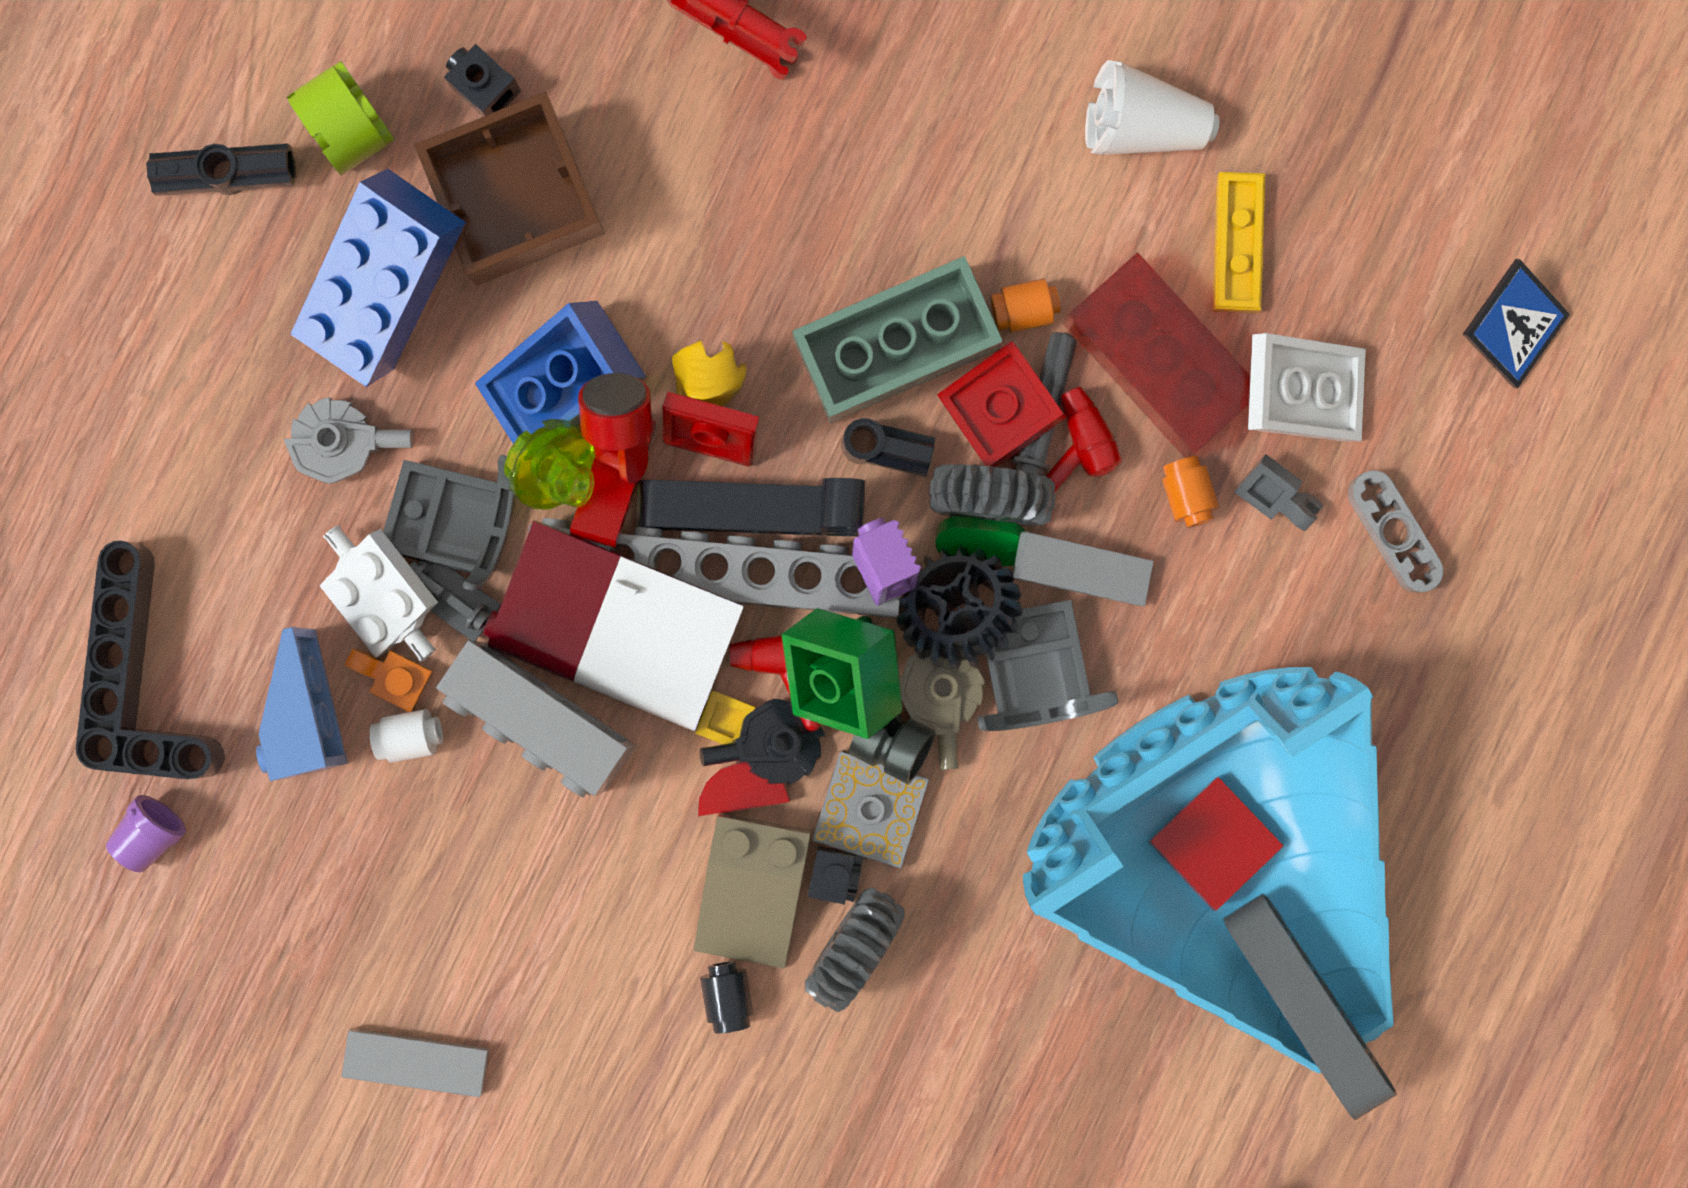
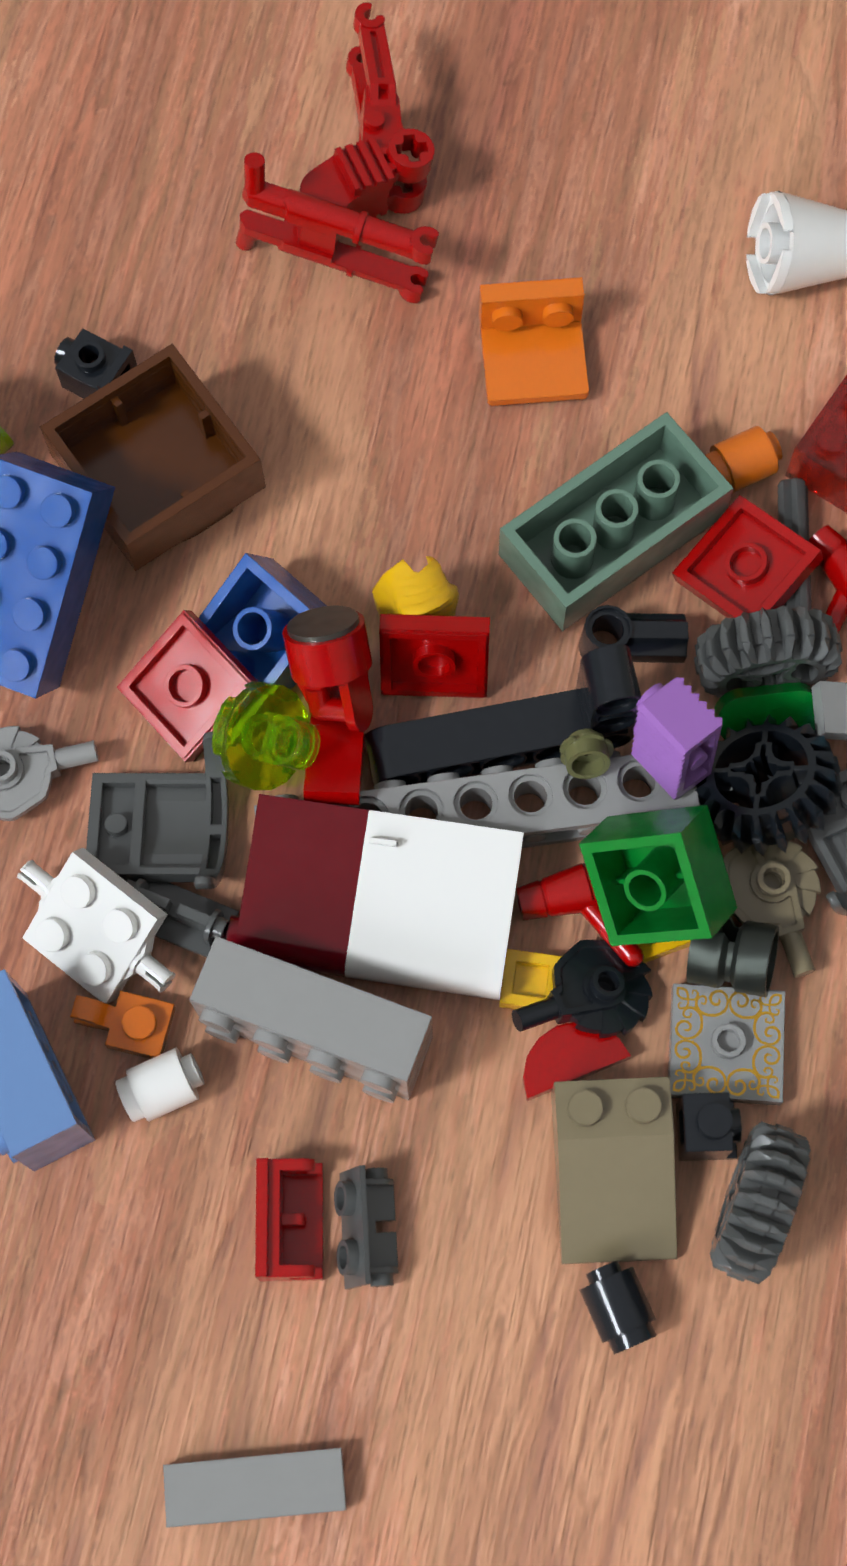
camera: 15 degrees left, 15 degrees down
(485, 868) = (289, 1220): none -> red hinge
(498, 400) = (184, 683): none -> tile
(540, 905) = (361, 1201): none -> dark grey hinge
(813, 550) = (586, 754): none -> olive plate
(872, 152) = (533, 341): none -> orange bracket

